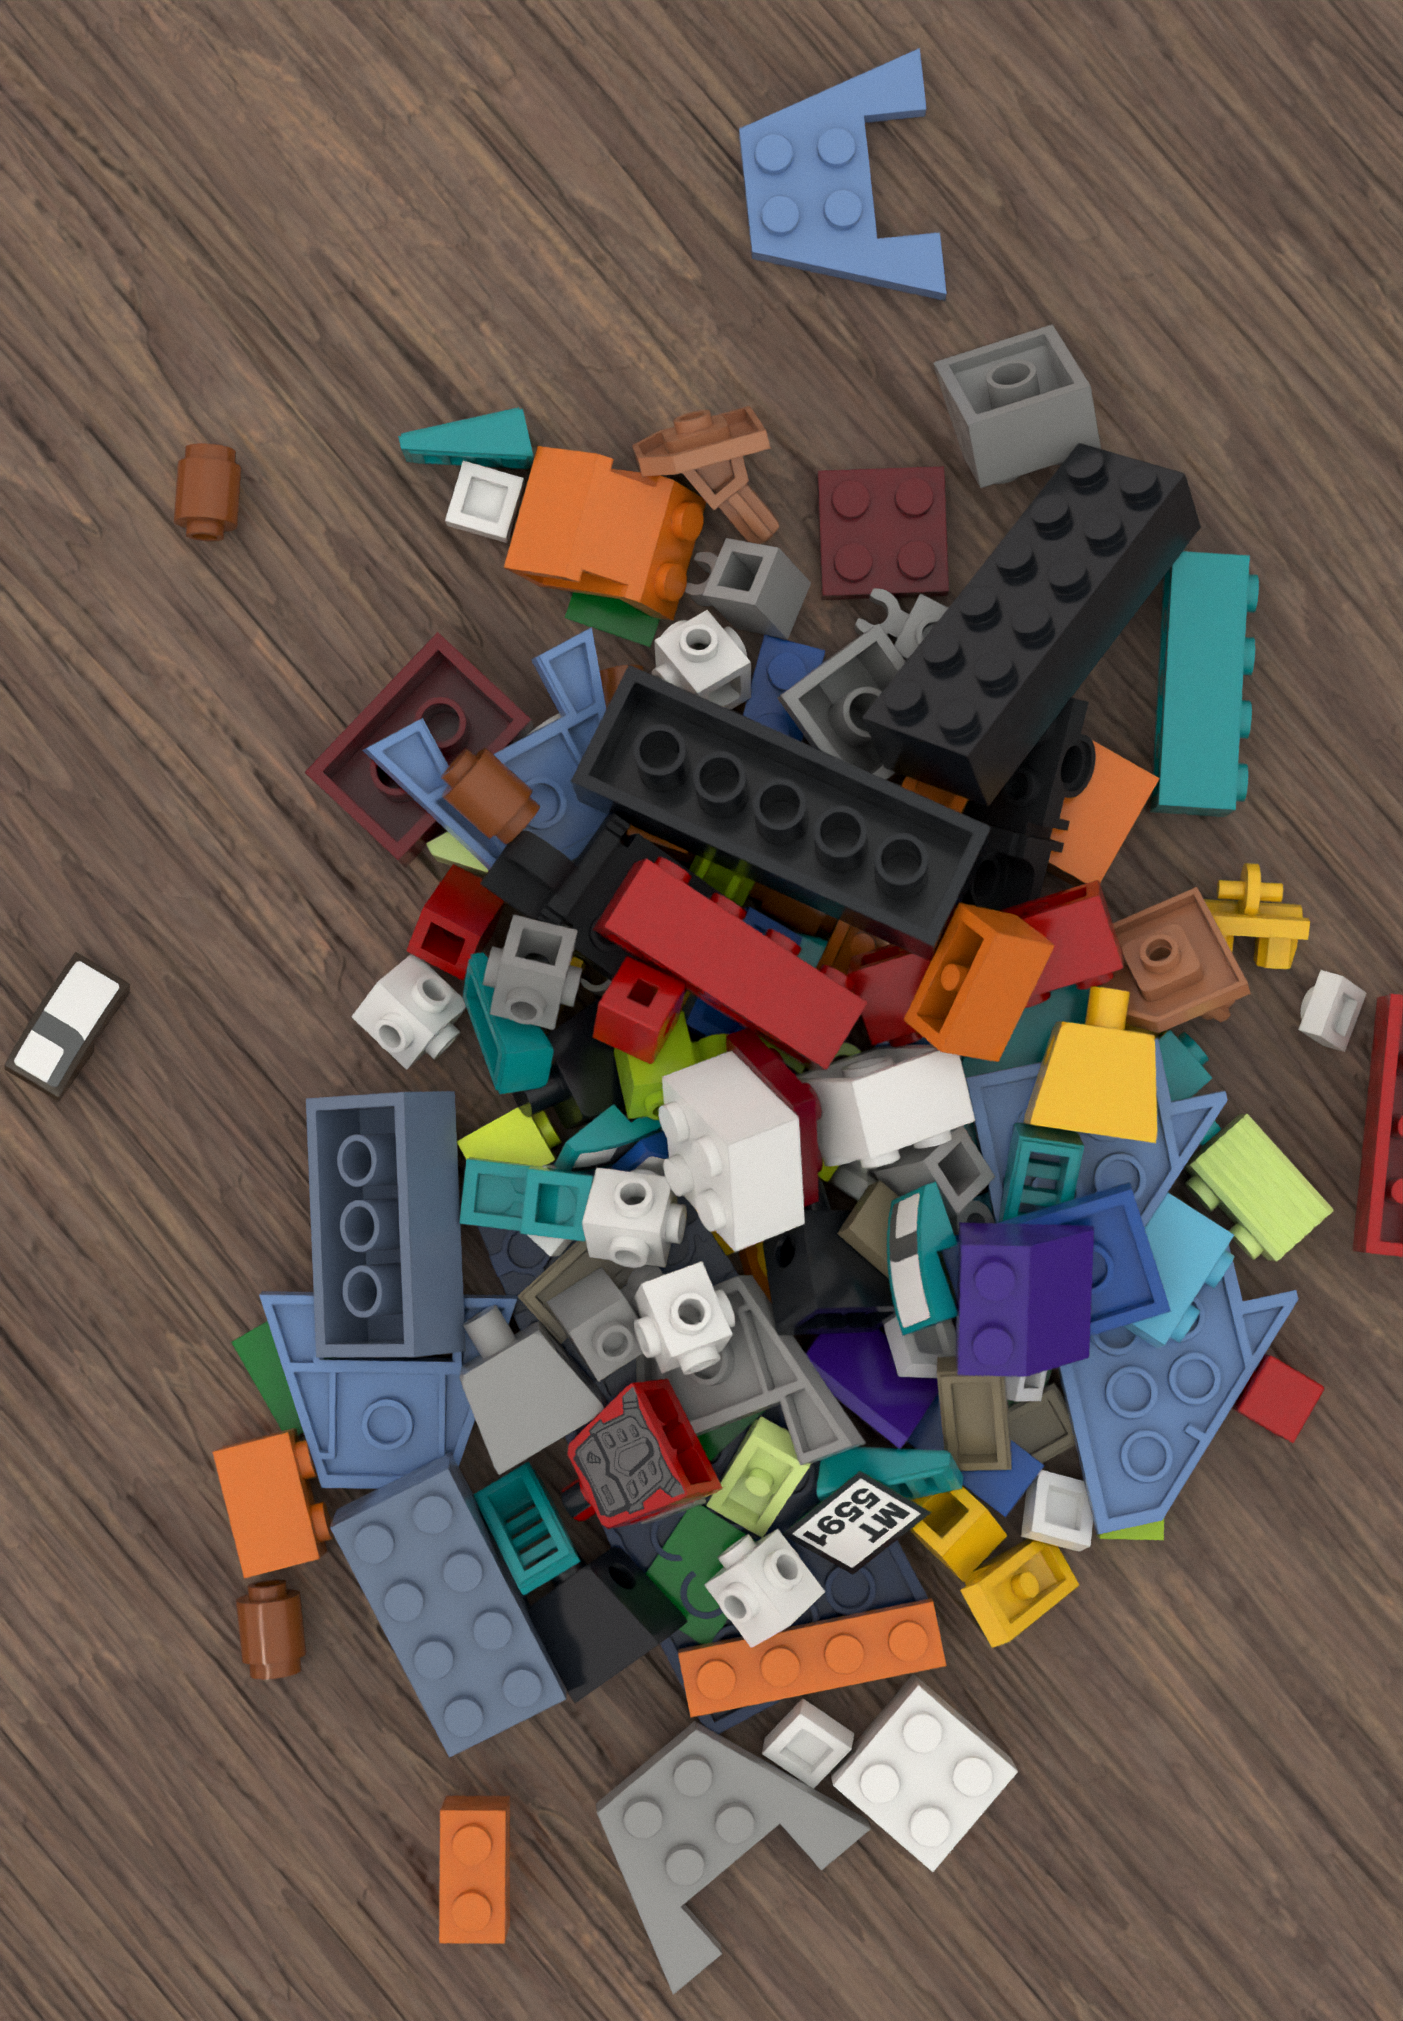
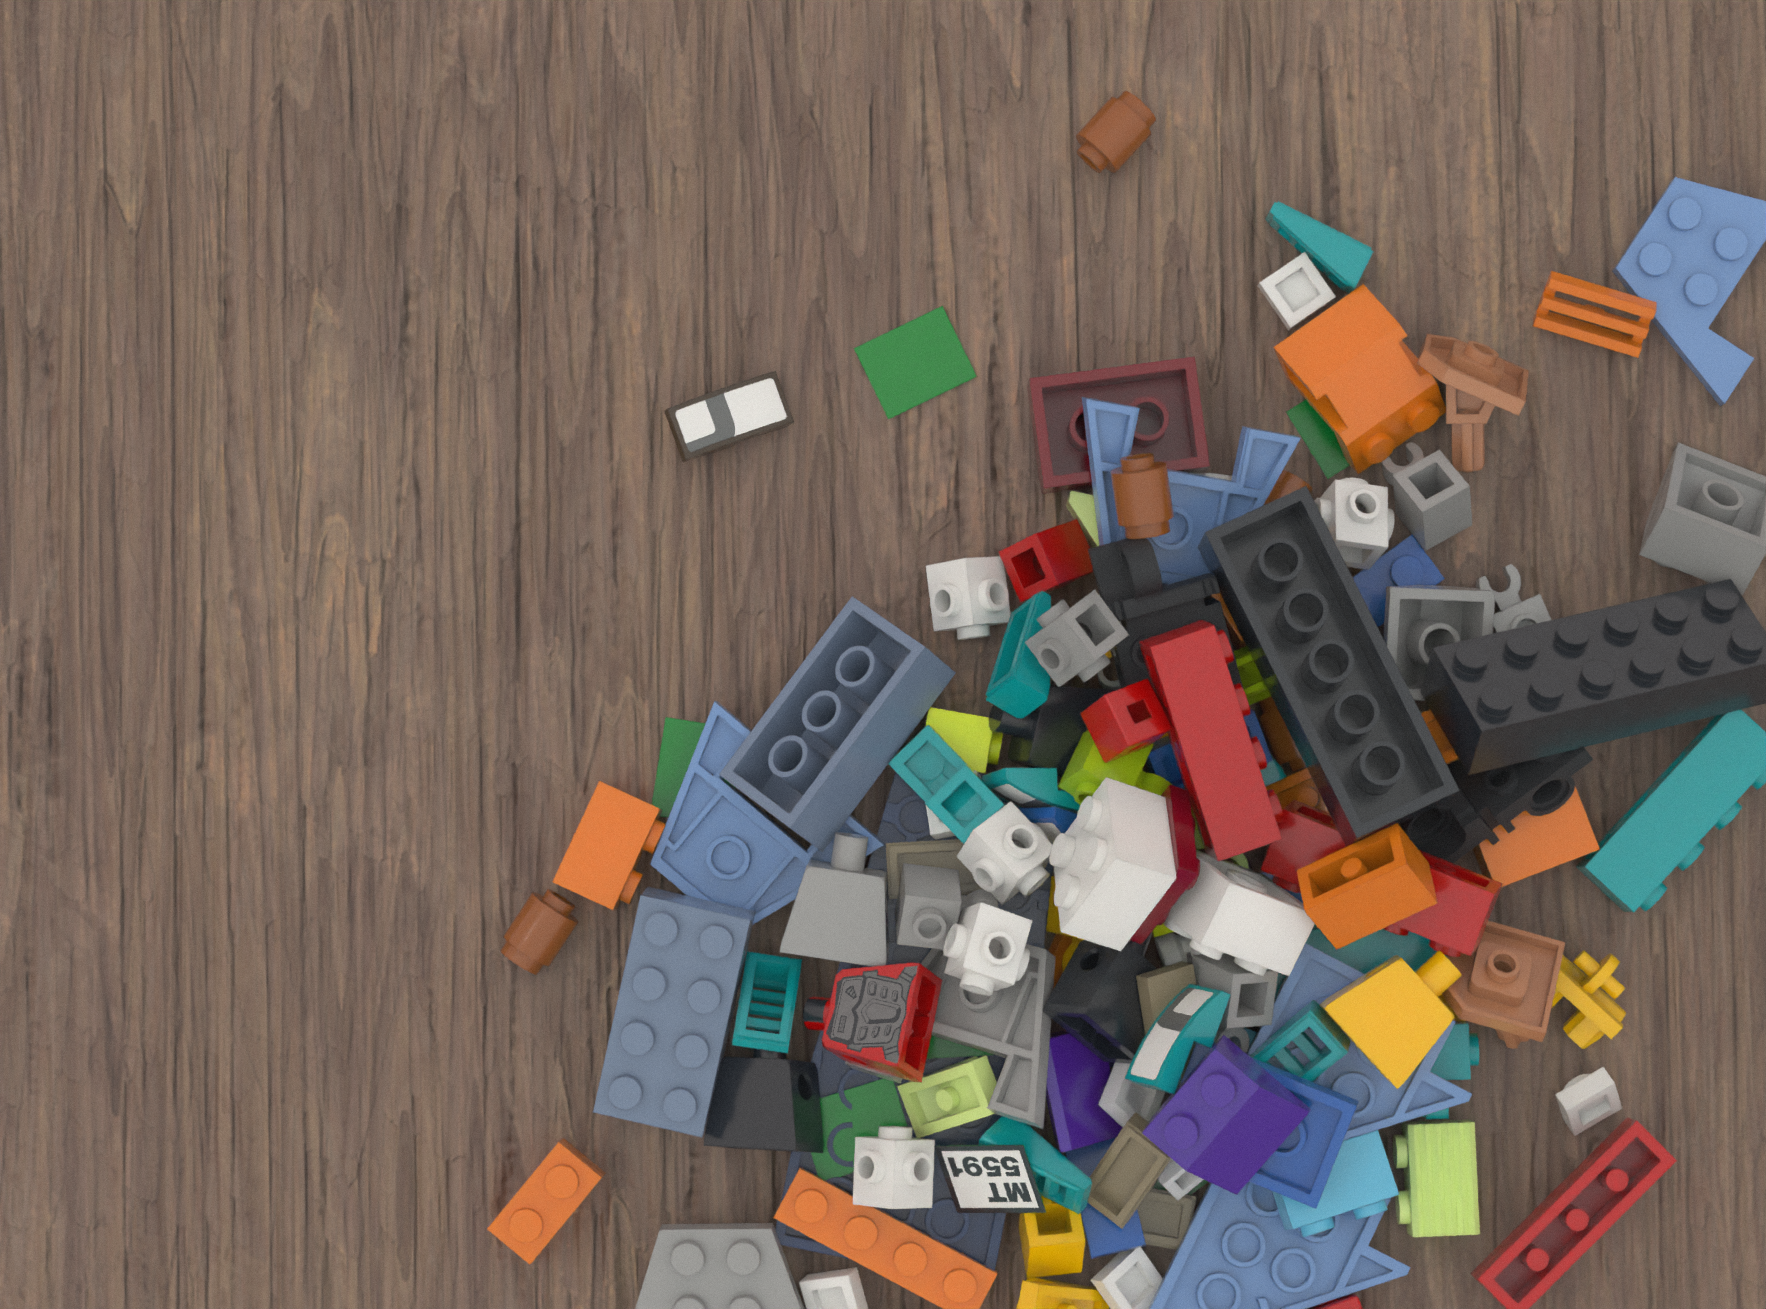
camera: 35 degrees right, 0 degrees up
(197, 842) = (915, 362): none -> green sticker
(774, 329) = (1588, 332): none -> orange tile
(883, 532) = (1548, 530): dark red plate -> none

